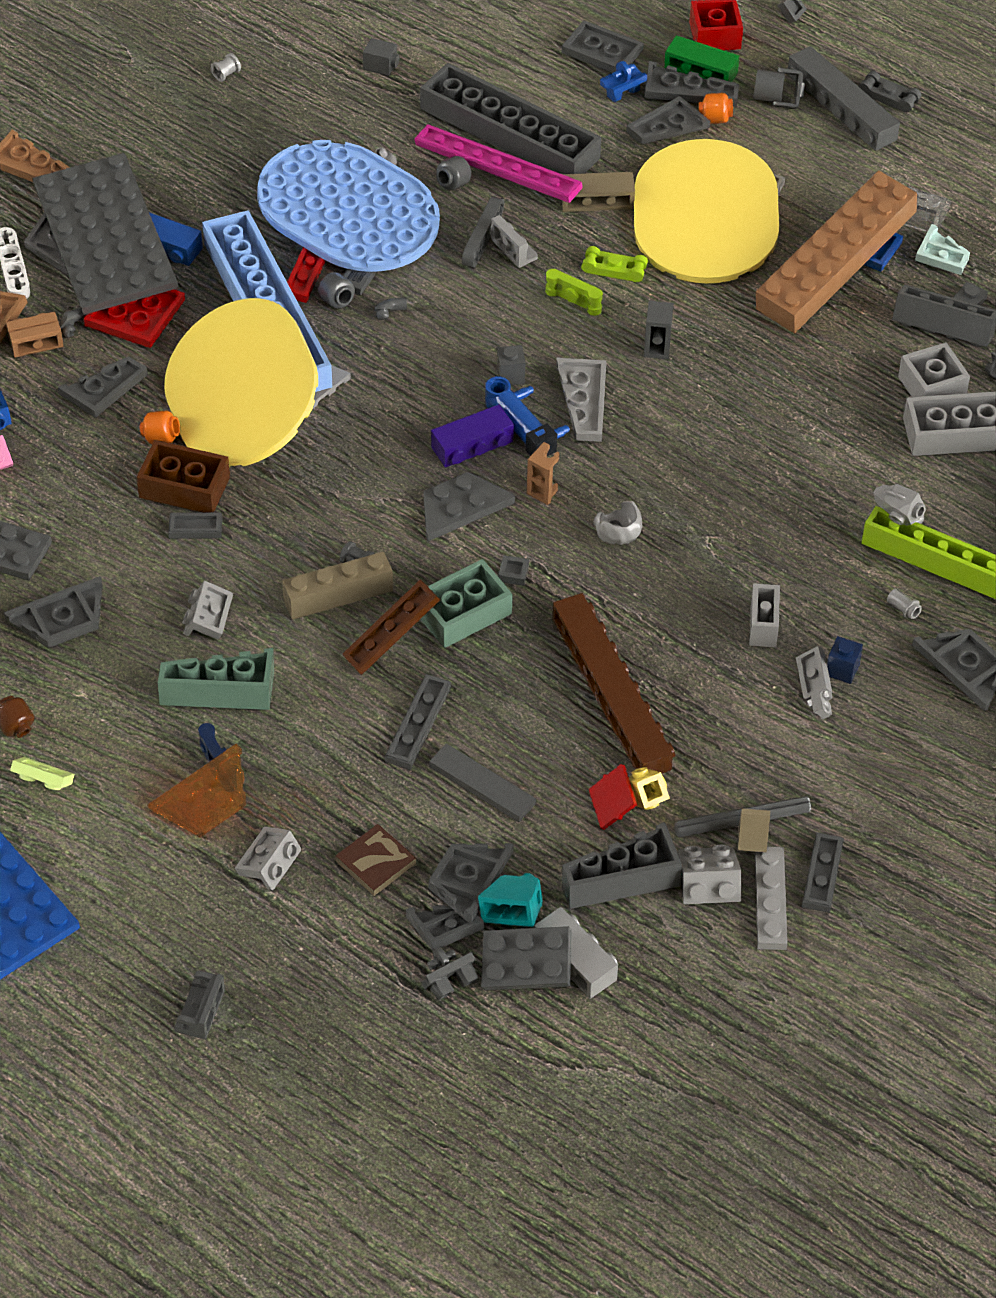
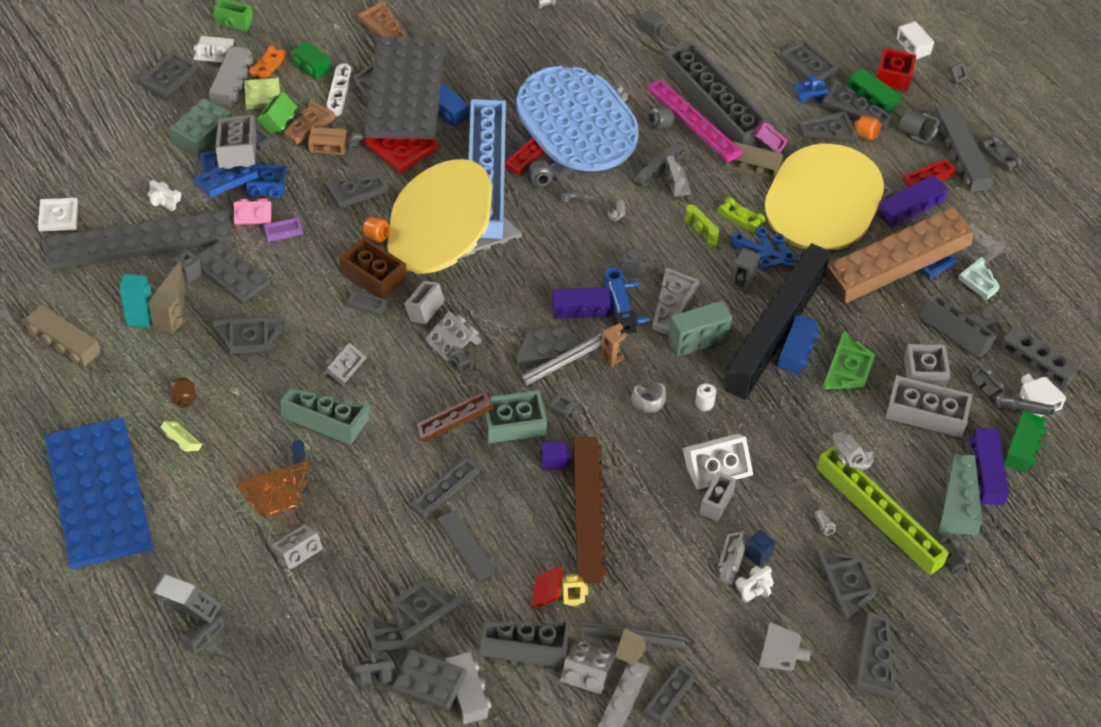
camera: 20 degrees right, 0 degrees up
(33, 467) = (283, 229): none -> medium lavender tile
(164, 968) = (185, 598): none -> dark grey window
(274, 498) = (424, 302): none -> light grey brick
(329, 529) = (452, 334): none -> light grey bracket
(337, 585) = (437, 375): dark tan brick -> none
(375, 859) = (367, 573): reddish brown tile -> none
(460, 308) = (619, 212): none -> light grey arm
(487, 513) = (562, 360): none -> light grey axle
(512, 900) = (440, 635): teal torso -> none
(537, 635) = (554, 455): none -> dark purple brick
(605, 155) = (770, 137): none -> magenta tile
(639, 418) = (699, 328): none -> sand green brick
(687, 501) = (705, 397): none -> white brick
(694, 300) = (766, 250): none -> blue plant
(728, 379) = (776, 321): none -> black brick
(732, 572) = (724, 455): none -> white slope
(766, 400) = (798, 344): none -> blue brick
(815, 182) = (911, 201): none -> dark purple brick
(819, 144) = (941, 170): none -> red plate
(839, 405) = (850, 365): none -> bright green wing
(863, 704) = (757, 584): none -> white hips
(930, 769) = (782, 649): none -> light grey torso

